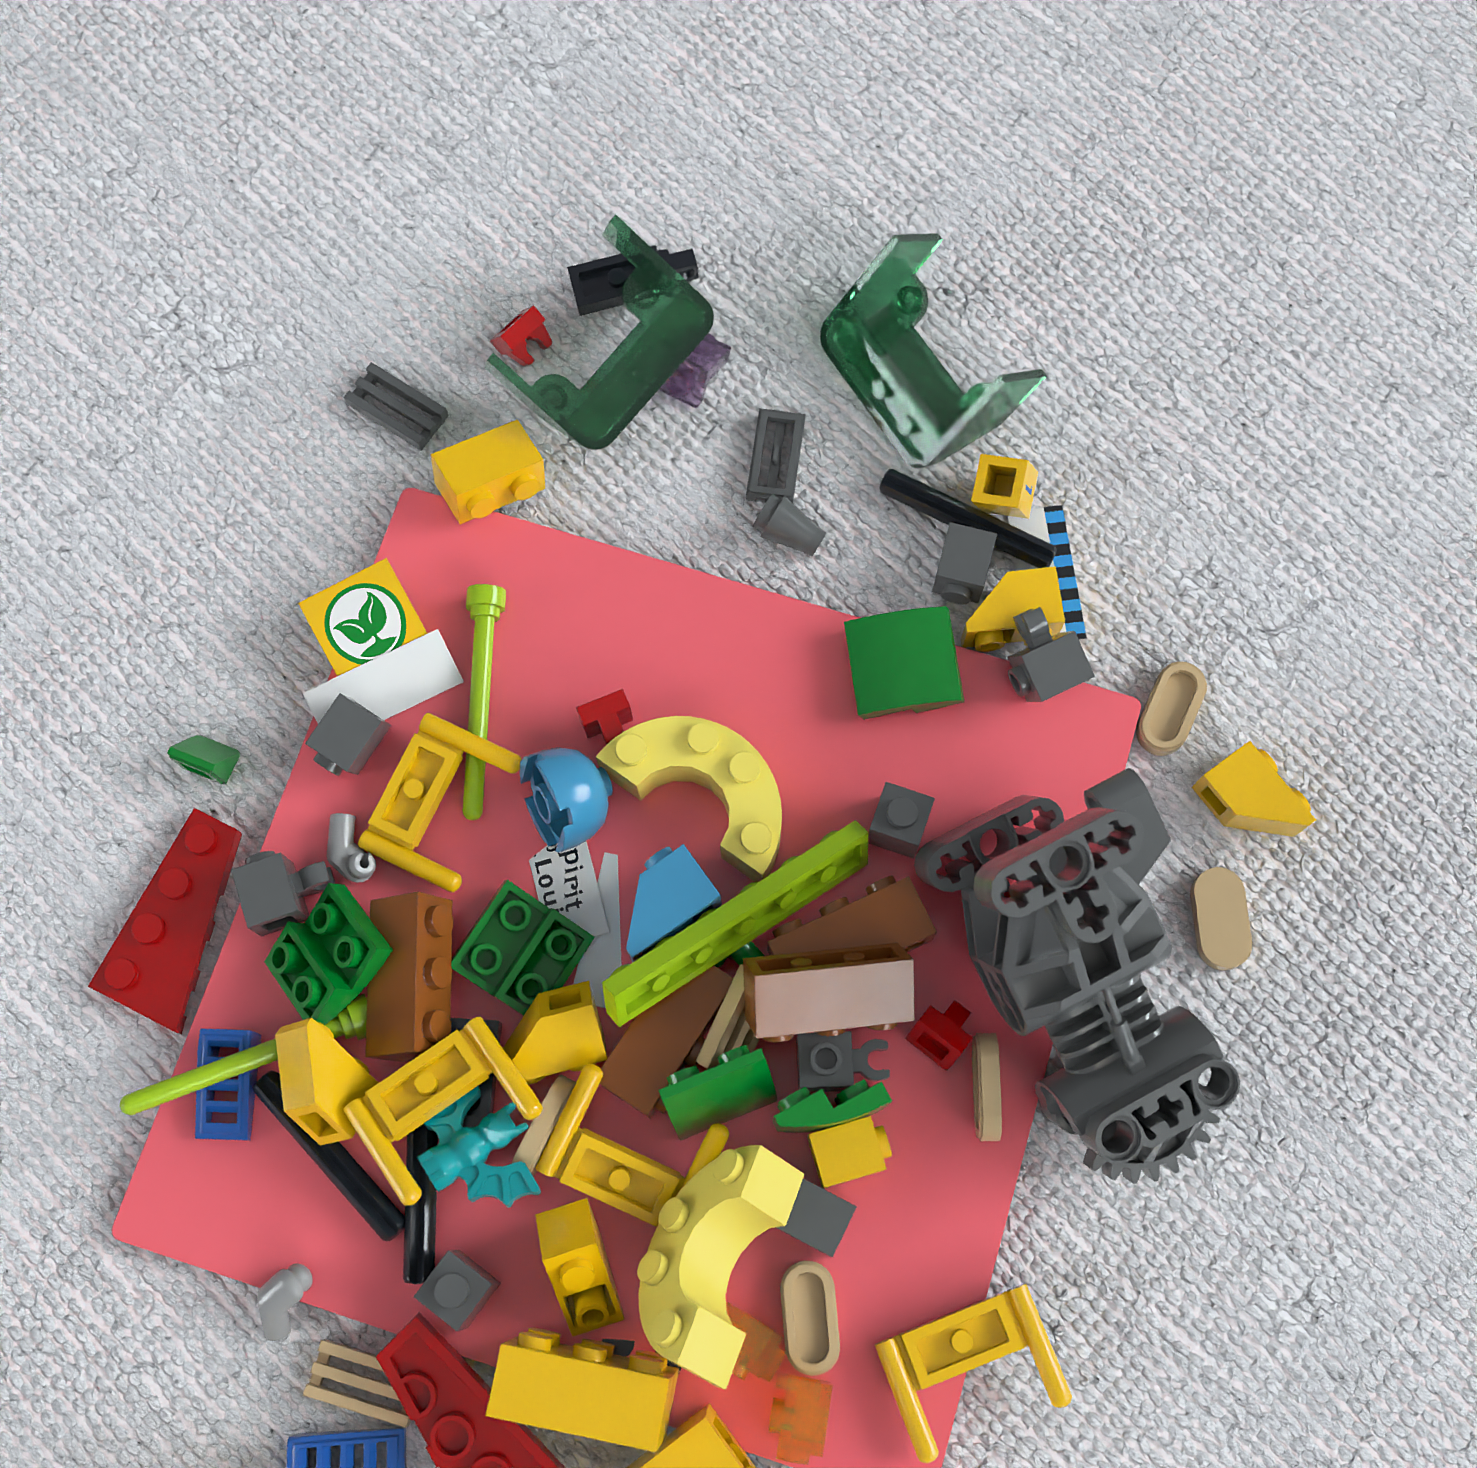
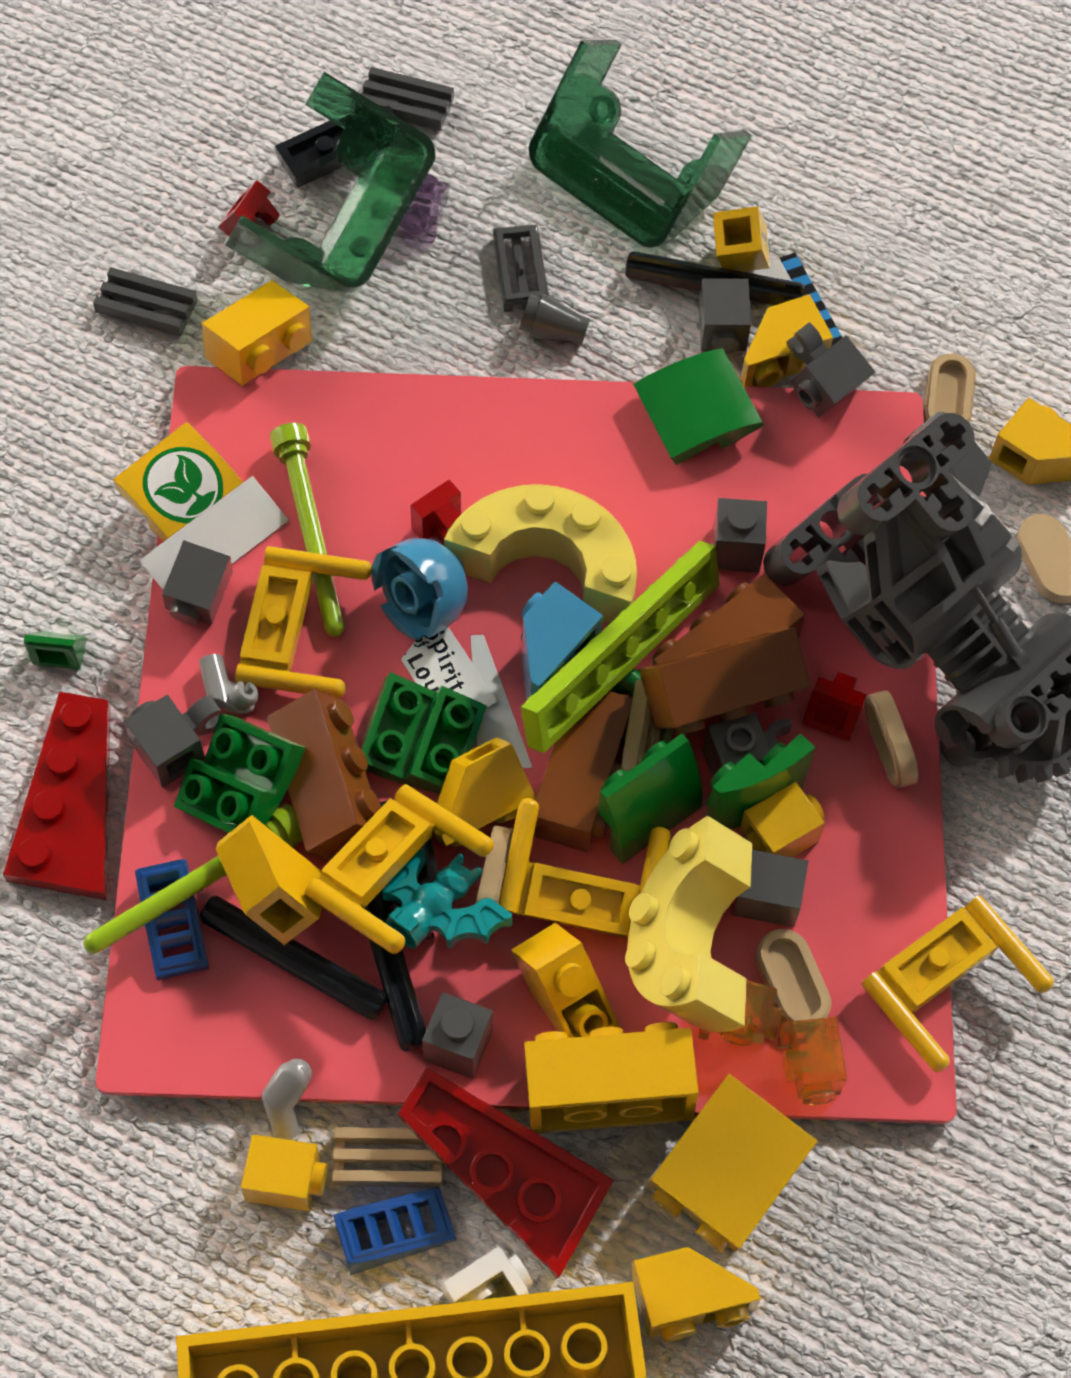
camera: 20 degrees left, 10 degrees down
(256, 1376) = (283, 1173): none -> yellow brick
(719, 234) = (410, 92): none -> dark grey tile

